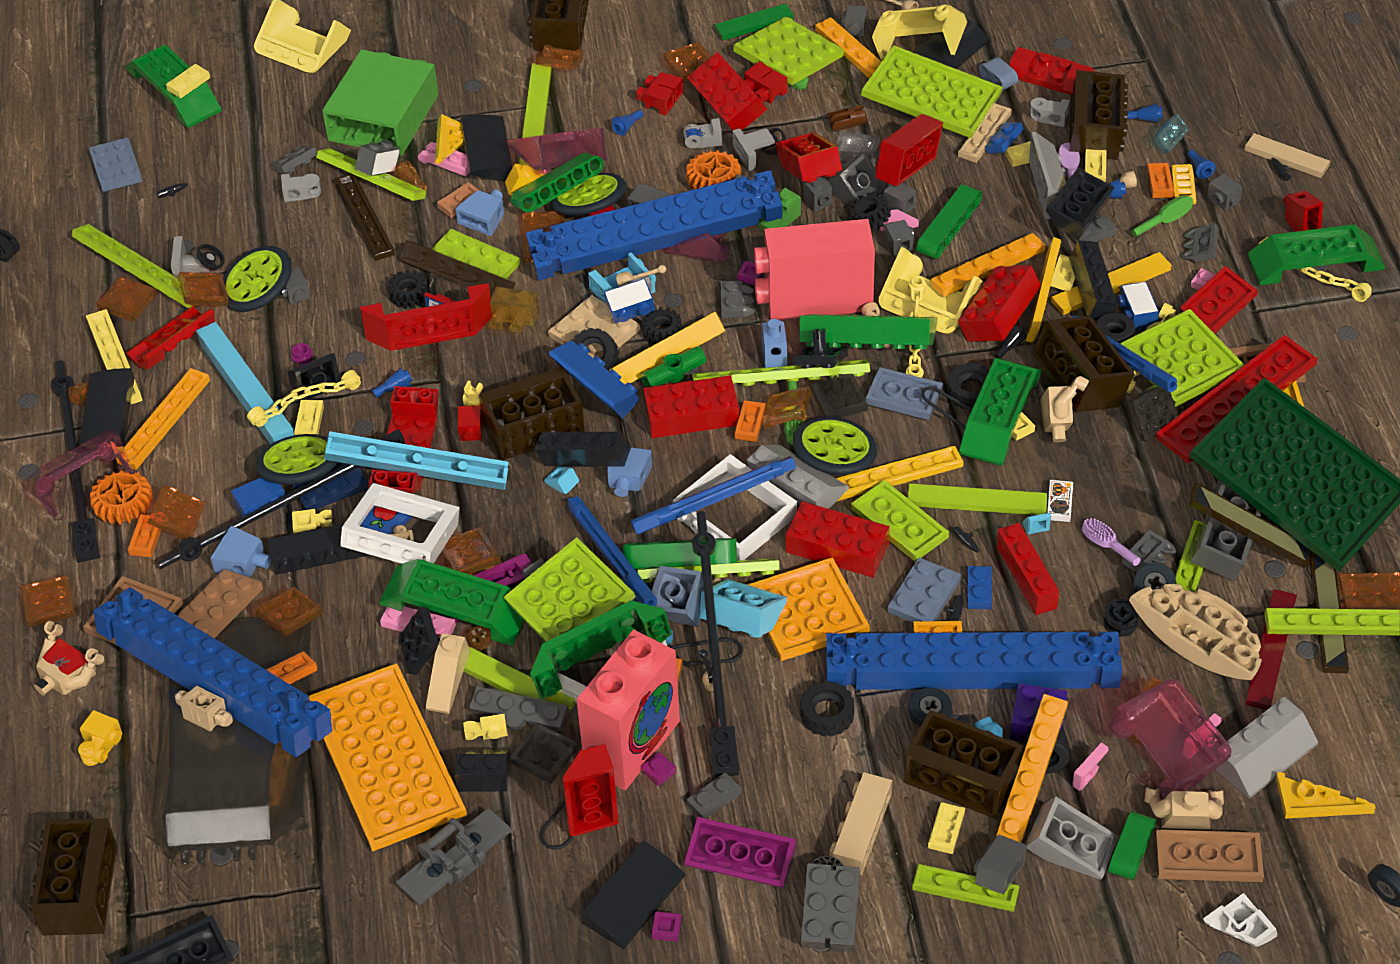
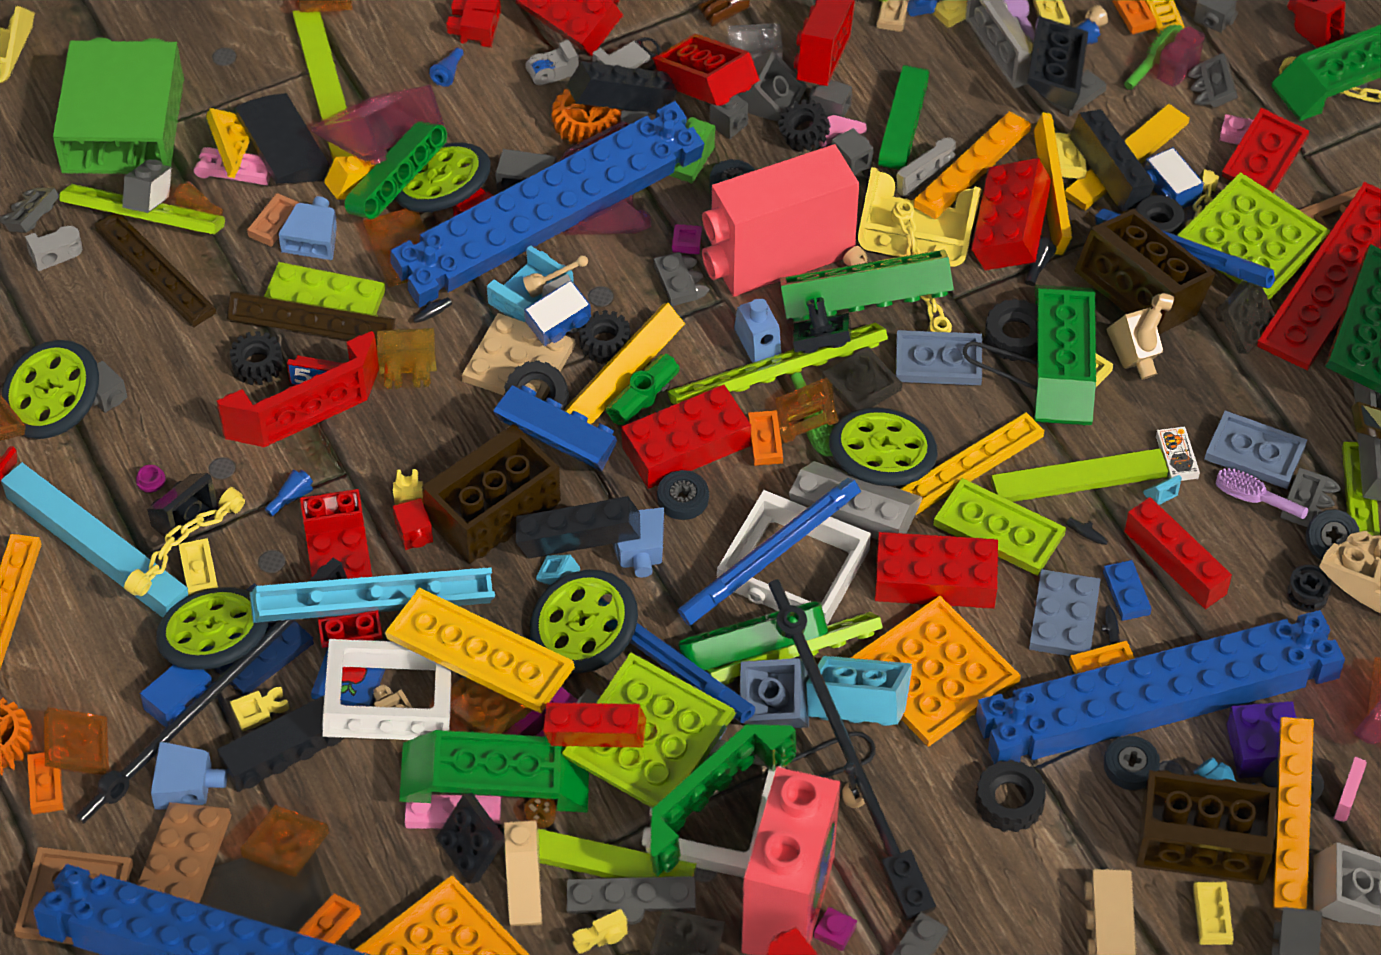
camera: 20 degrees left, 5 degrees up
(473, 513) = (480, 650): none -> yellow plate
(530, 580) = (595, 725): none -> red brick
(547, 283) = (432, 310): none -> black helmet
(562, 514) = (608, 644): none -> lime wedge
(673, 437) = (691, 485): none -> black bush
(739, 155) = (621, 87): none -> black brick
(950, 258) = (926, 167): none -> light grey hinge
(1121, 510) = (1256, 449): none -> sand blue plate
(1182, 219) = (1180, 56): none -> clear pink brick

